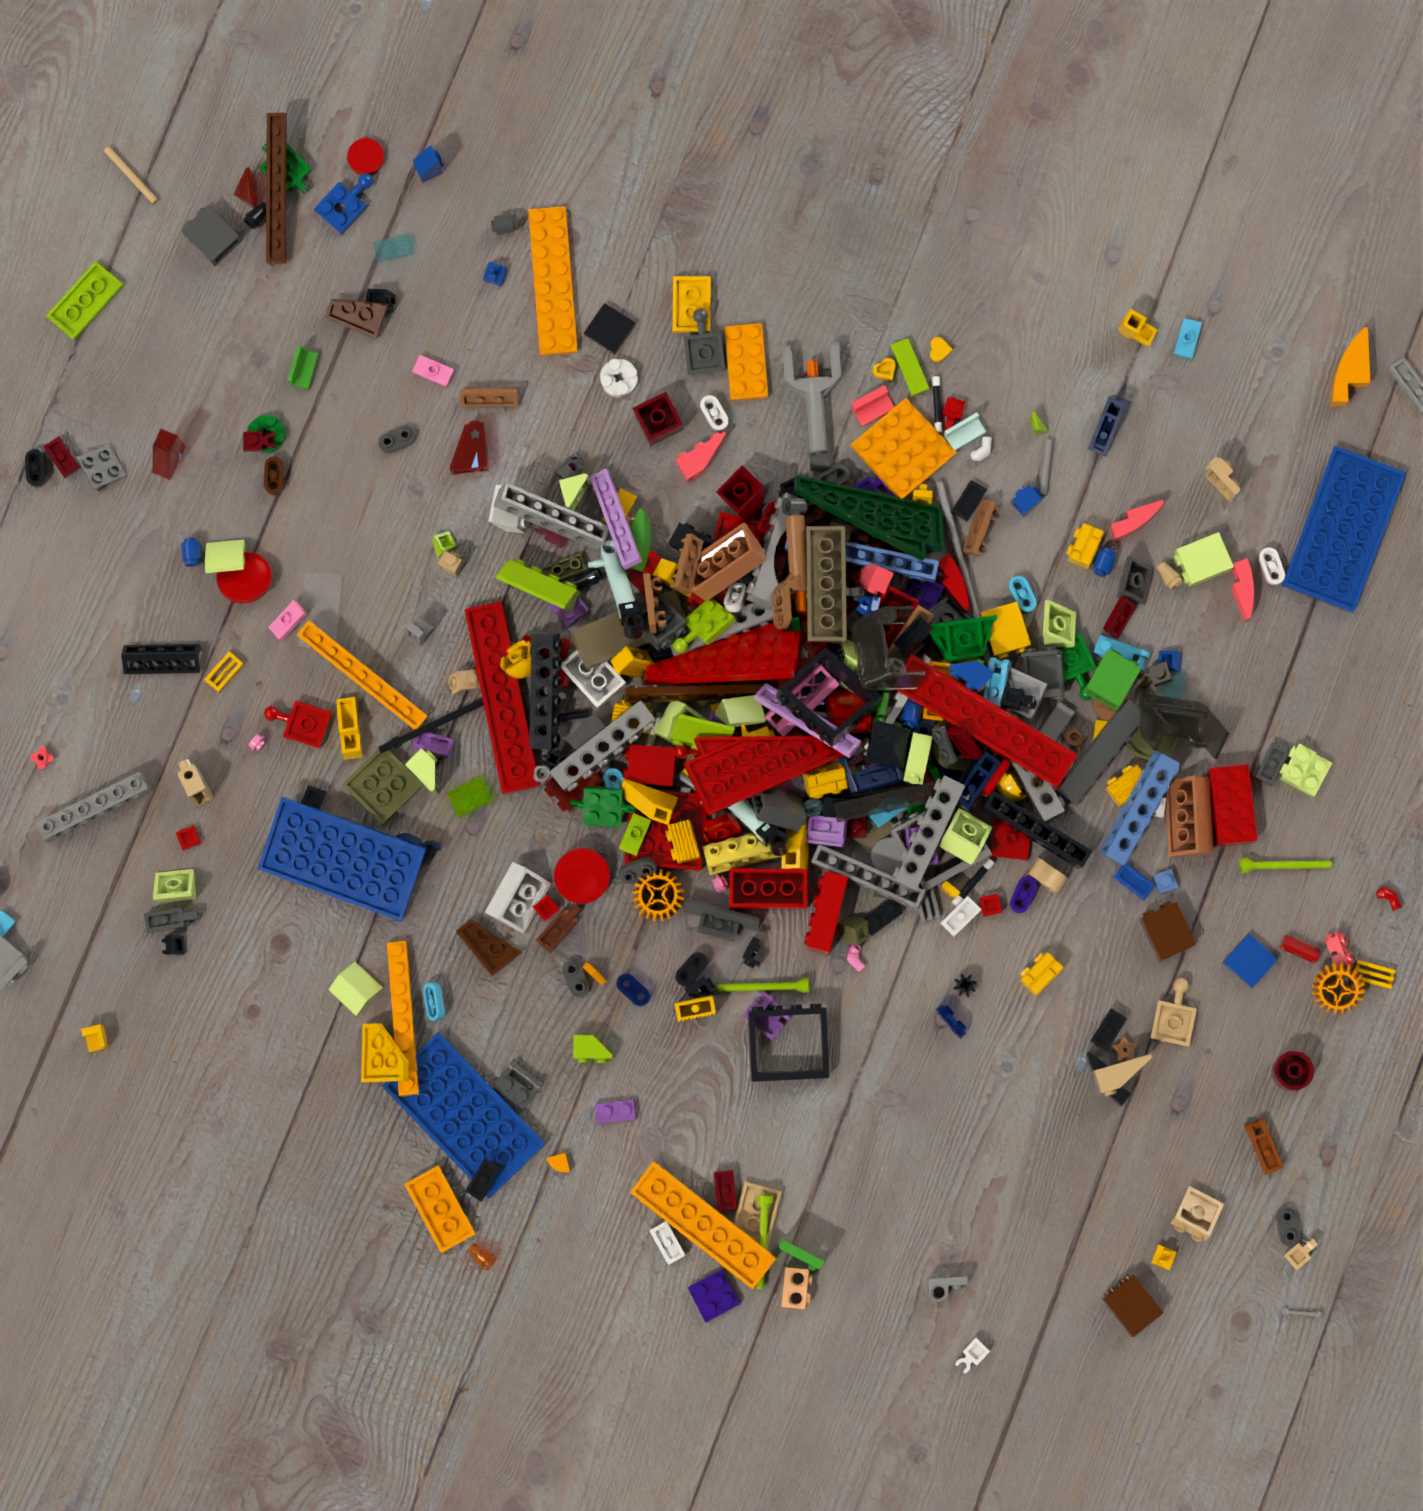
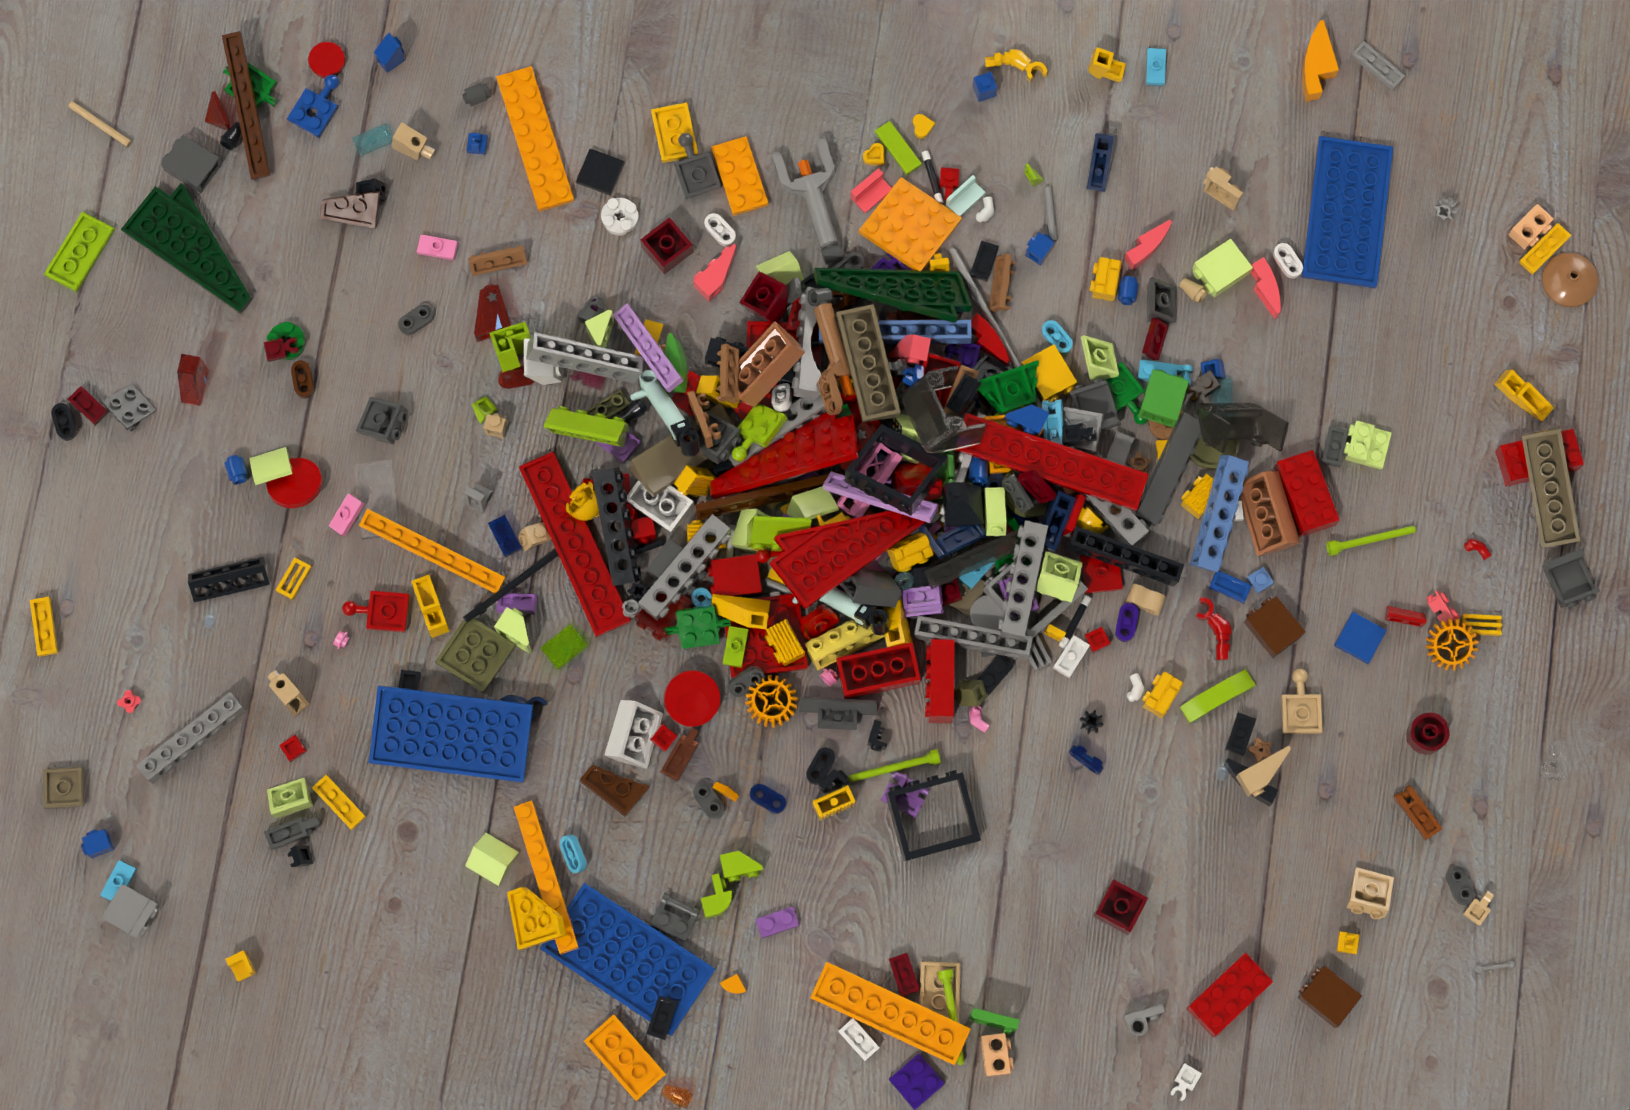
camera: 20 degrees left, 5 degrees down
(186, 308) = (180, 236): none -> dark green wing
(221, 901) = (339, 802): none -> yellow plate
(303, 368) = (309, 271): bright green panel -> none
(342, 534) = (382, 420): none -> dark grey plate
(424, 255) = (406, 138): none -> tan torso
(436, 675) = (504, 536): none -> clear blue plate
(479, 521) = (516, 380): none -> clear red plate
(481, 484) = (510, 343): none -> lime brick
(564, 1080) = (720, 902): none -> lime brick
(571, 698) = (643, 530): none -> red brick
(765, 466) = (782, 268): none -> yellowish green slope
(949, 1173) = (1120, 907): none -> dark red brick
(1010, 323) = (984, 86): none -> blue brick
(1018, 963) = (1137, 689): none -> white arm
(1035, 1282) = (1229, 995): none -> red brick
(1048, 301) = (1017, 59): none -> yellow piece
(1095, 987) = (1217, 695): none -> lime slope
(1114, 920) = (1220, 626): none -> red piece

